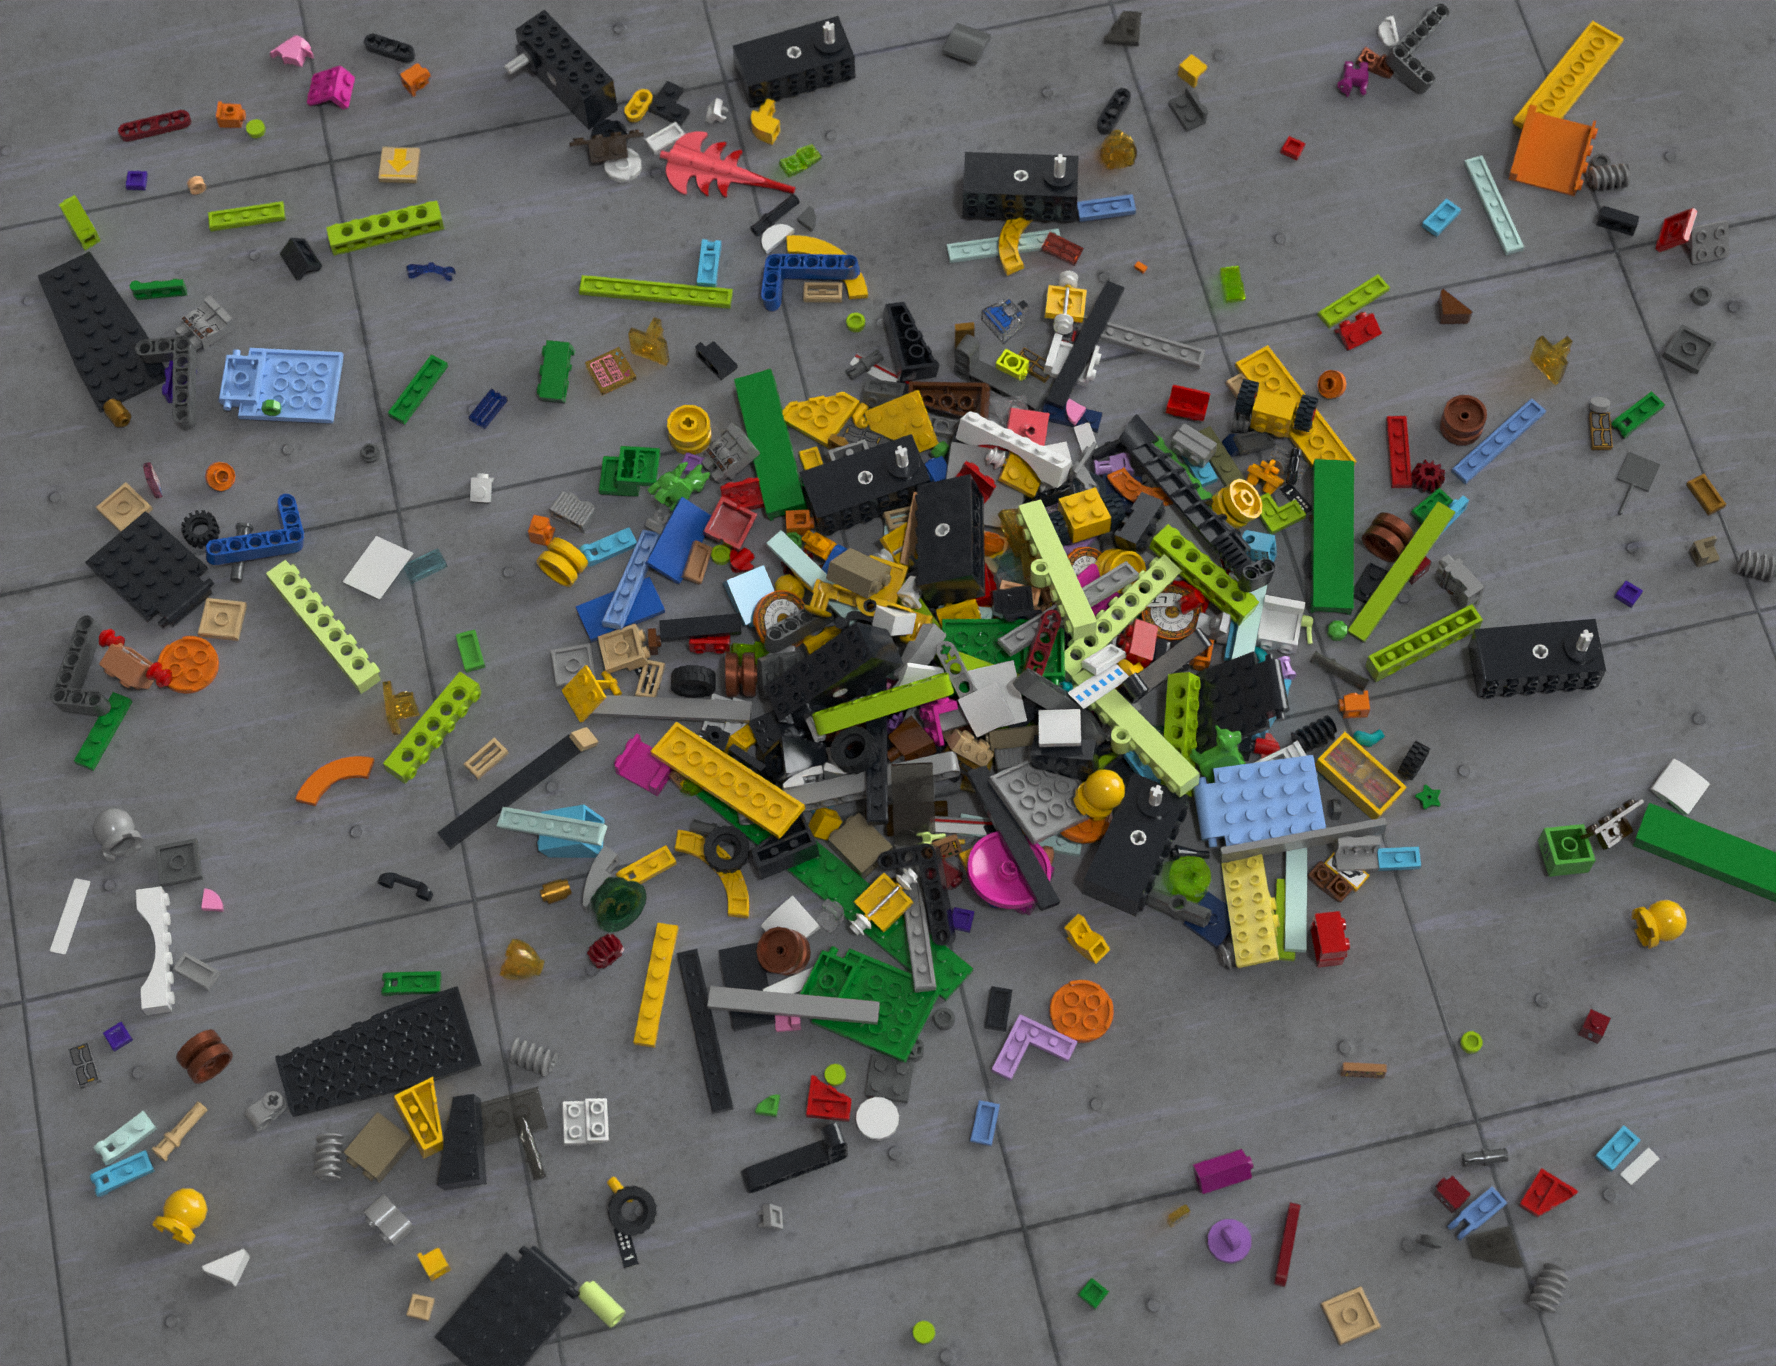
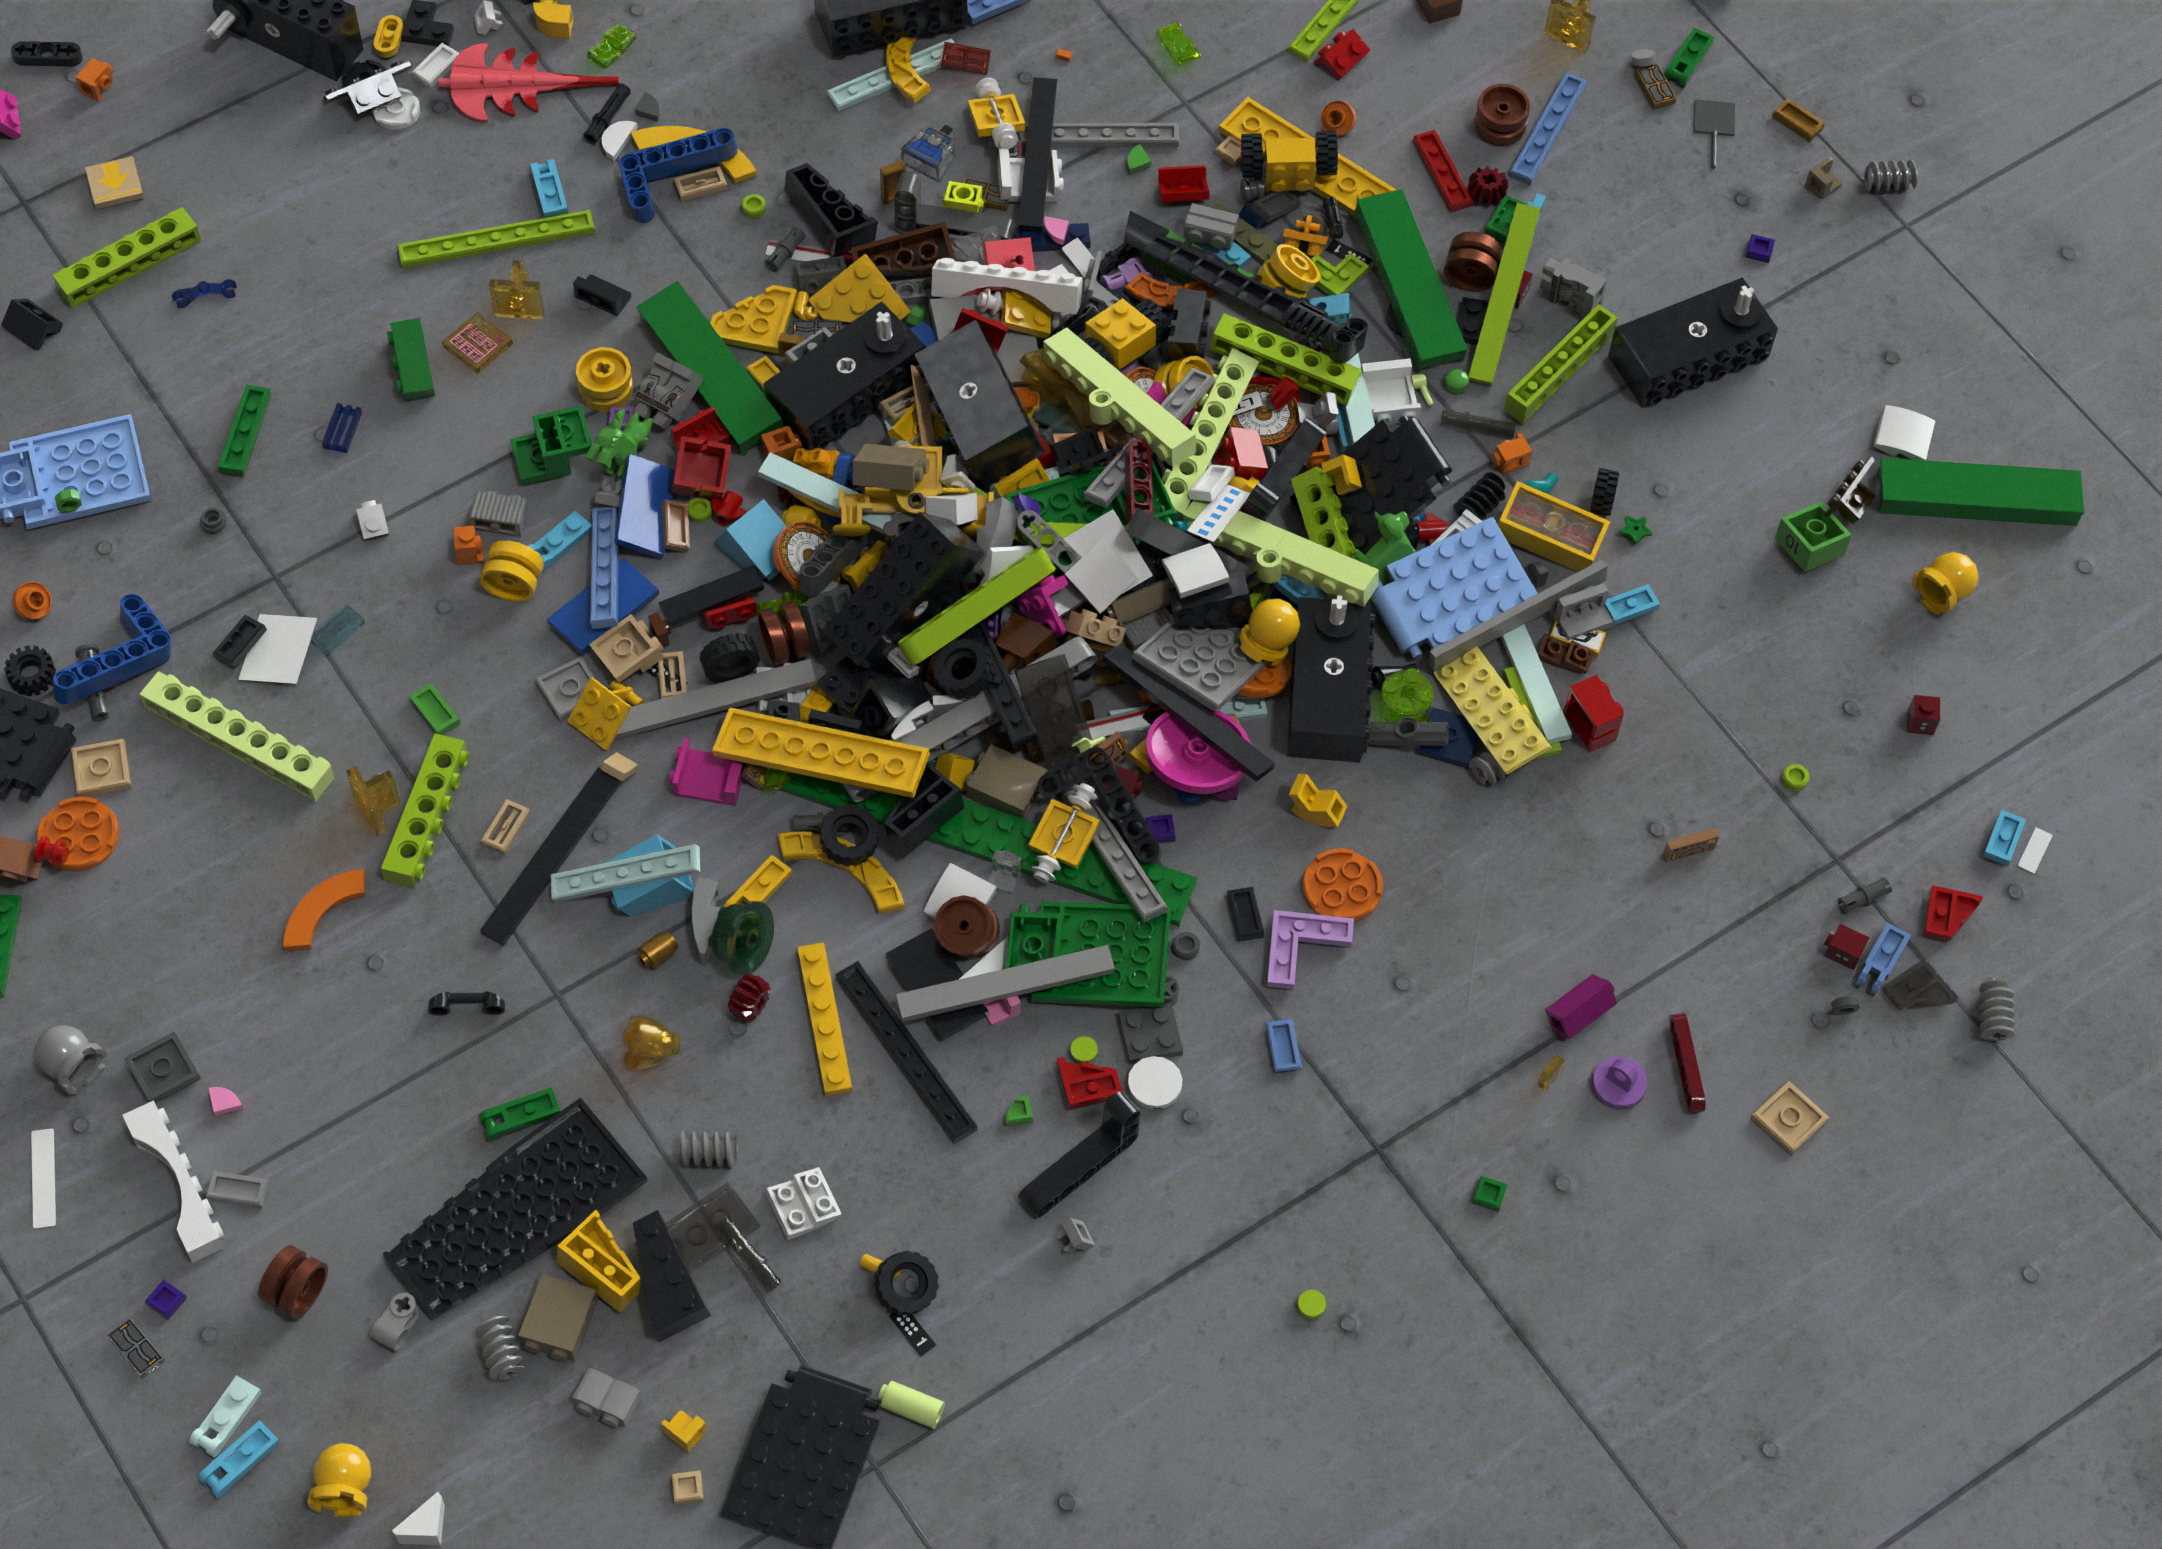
camera: 25 degrees left, 5 degrees down
(173, 1138) = (289, 1395): tan pin -> none
(353, 553) = (239, 641): none -> black plate
(953, 636) = (1026, 503): none -> dark purple tile
(1162, 371) = (1138, 160): none -> bright green tile
(1210, 684) = (1344, 473): none -> yellow panel

